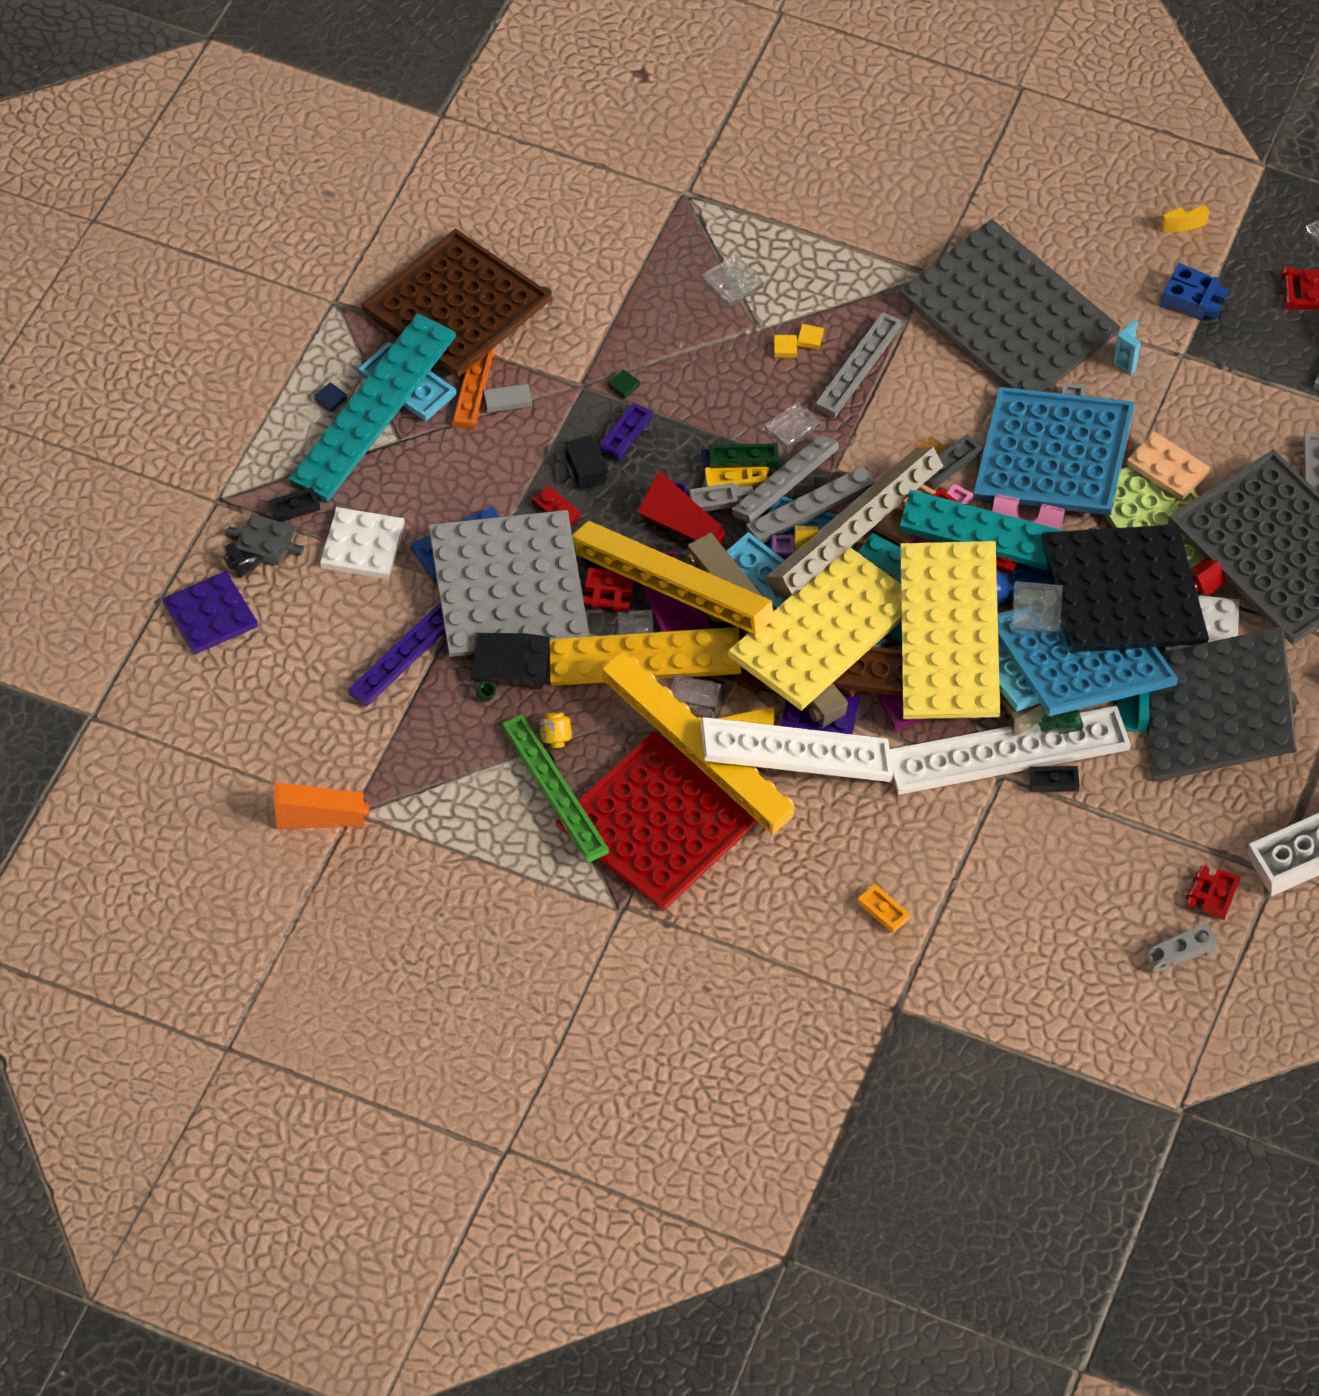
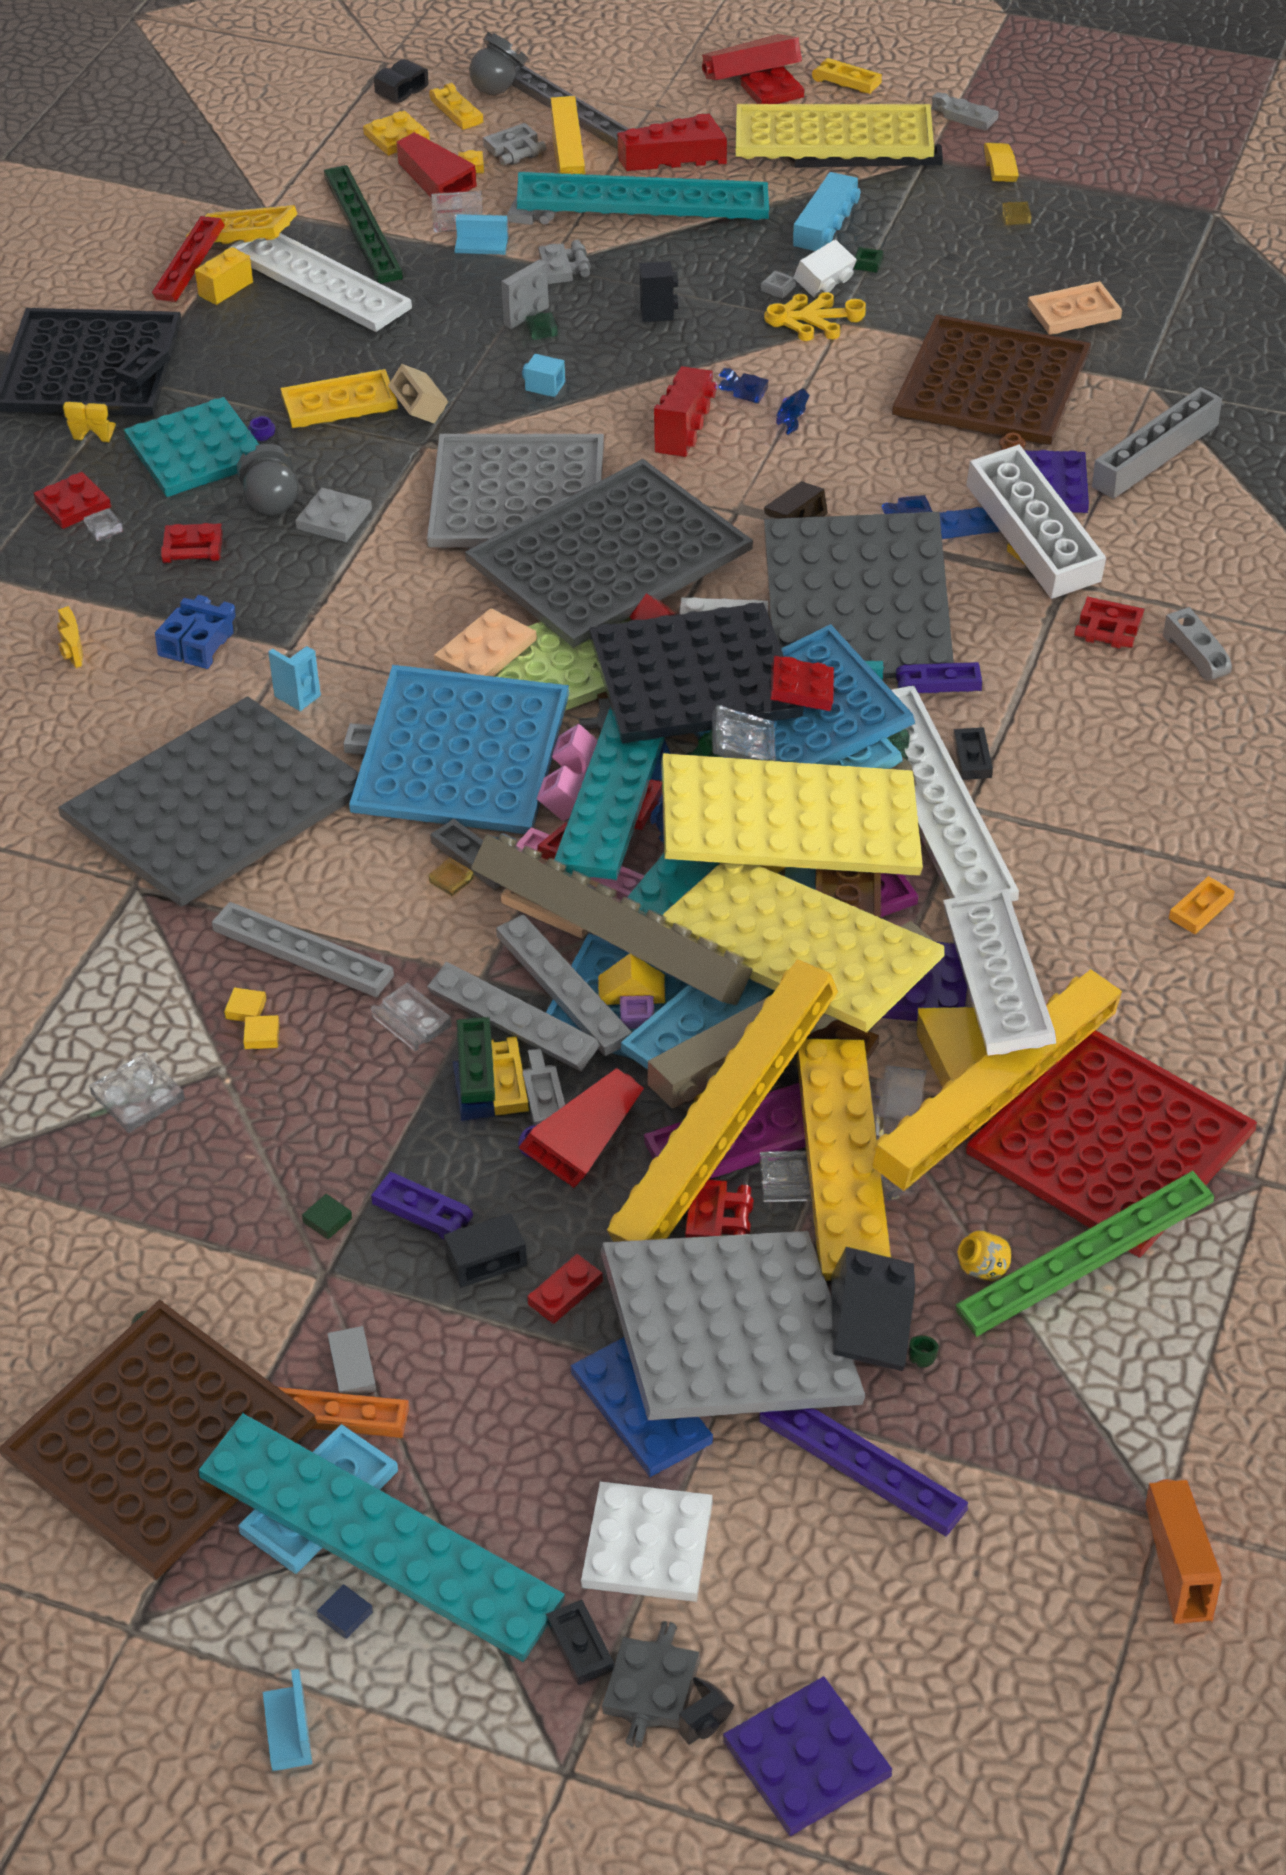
camera: 90 degrees left, 10 degrees down
(259, 372) = (287, 1726): none -> medium azure panel
(1092, 644) = (802, 683): none -> red plate
(1143, 766) = (940, 677): none -> dark purple plate

